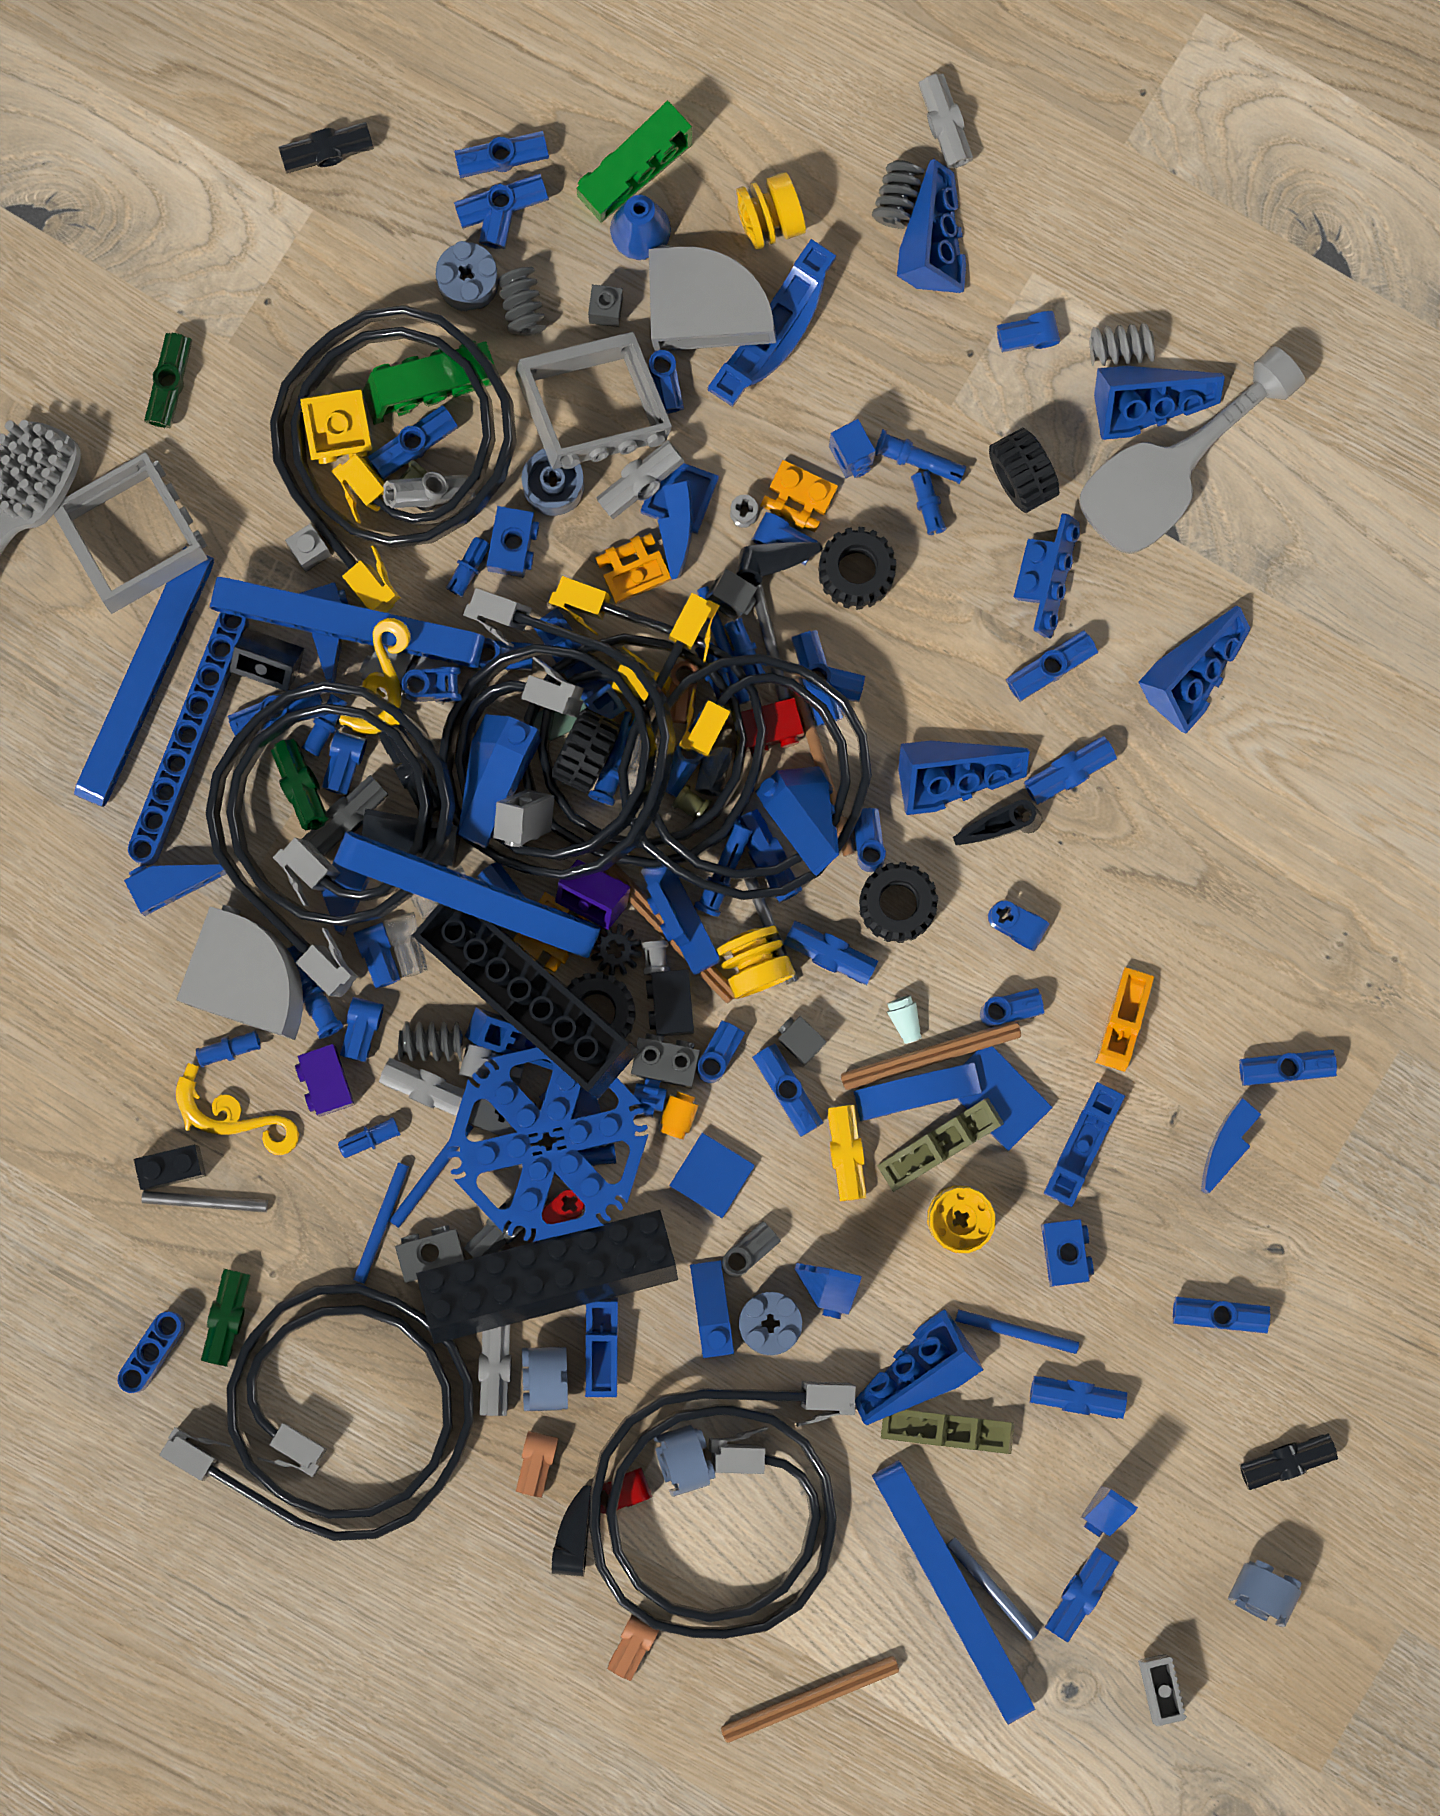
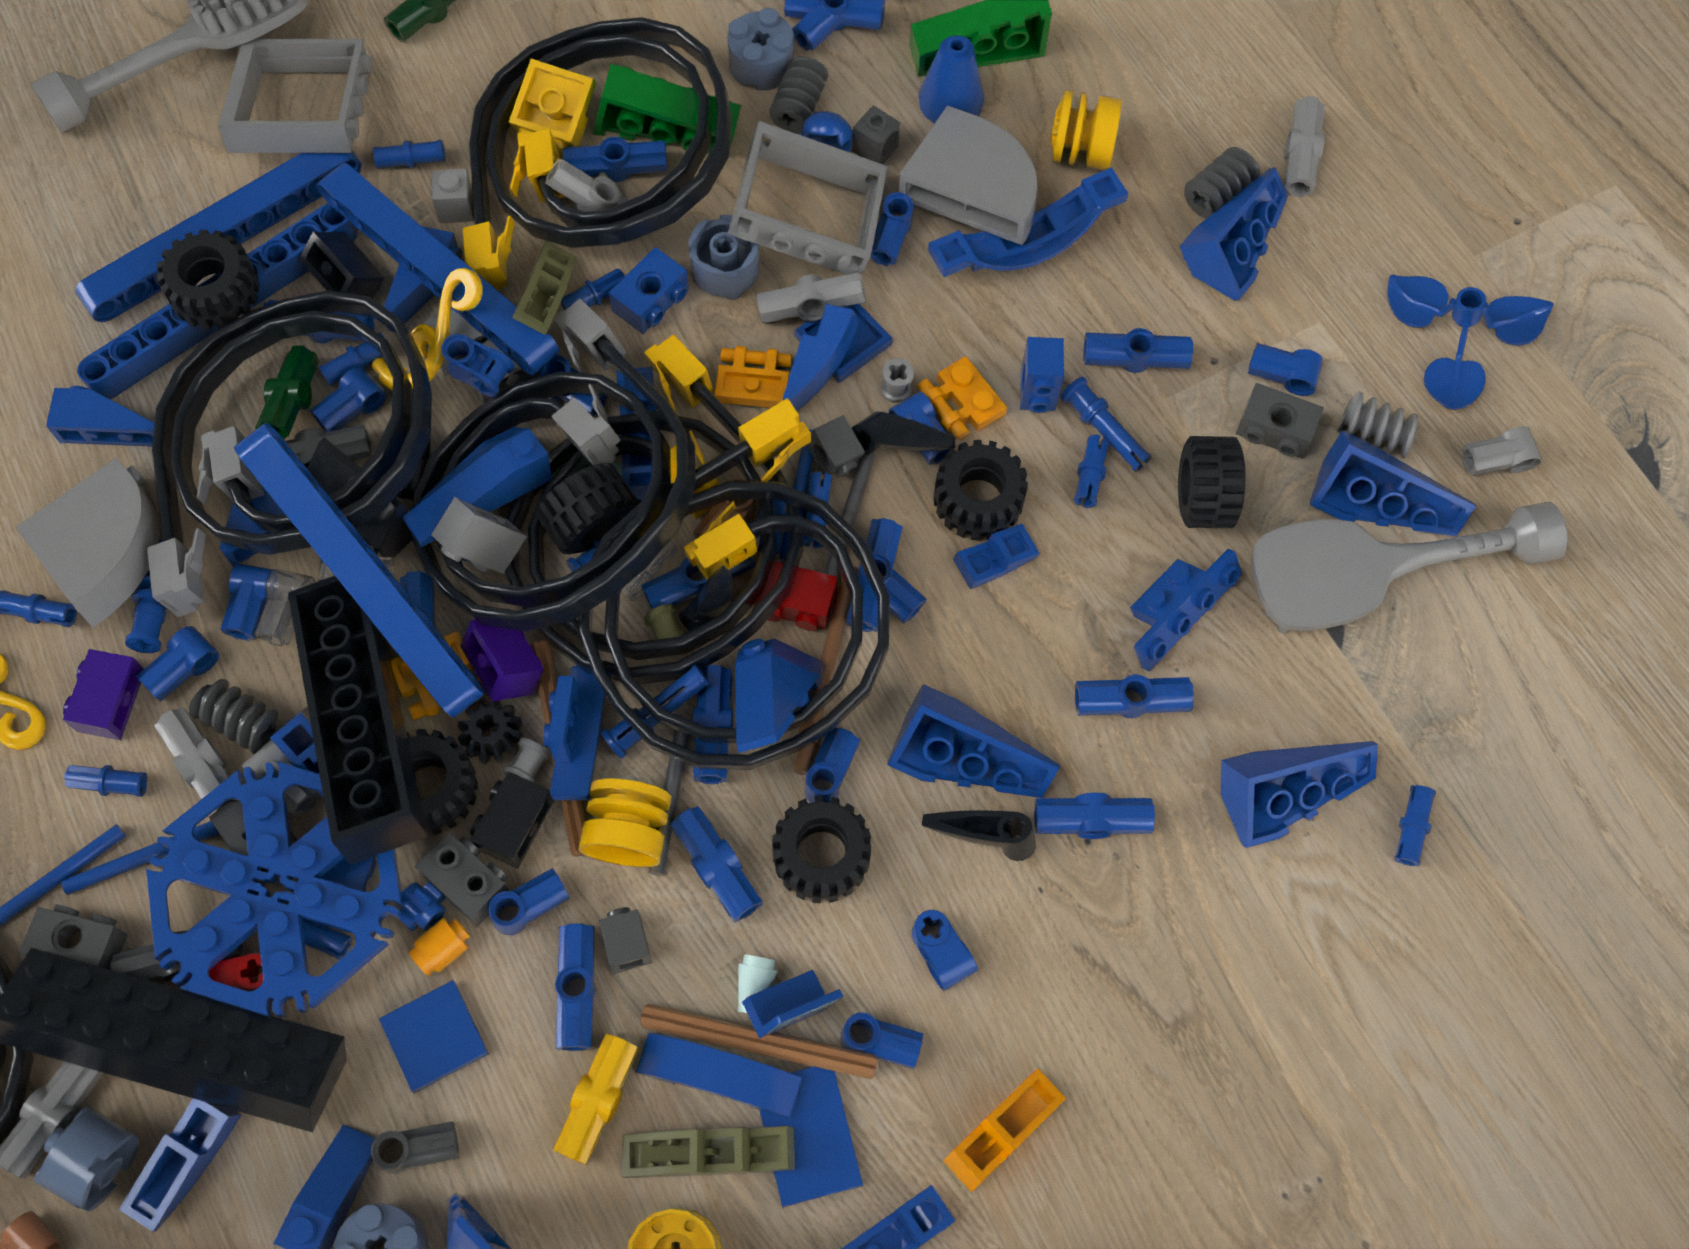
camera: 30 degrees right, 15 degrees down
(167, 714) = (197, 258): none -> black tyre
(245, 529) = (409, 154): none -> blue pin
(440, 592) = (545, 287): none -> olive slope
(567, 323) = (828, 129): none -> blue hair
(895, 611) = (996, 557): none -> blue slope
(927, 373) = (1118, 350): none -> blue piece
(937, 1019) = (788, 1003): none -> blue panel
(1060, 372) = (1270, 405): none -> dark grey brick
(1101, 209) = (1515, 320): none -> blue plant
(1228, 311) = (1510, 451): none -> light grey piece
(1294, 650) = (1415, 825): none -> blue pin

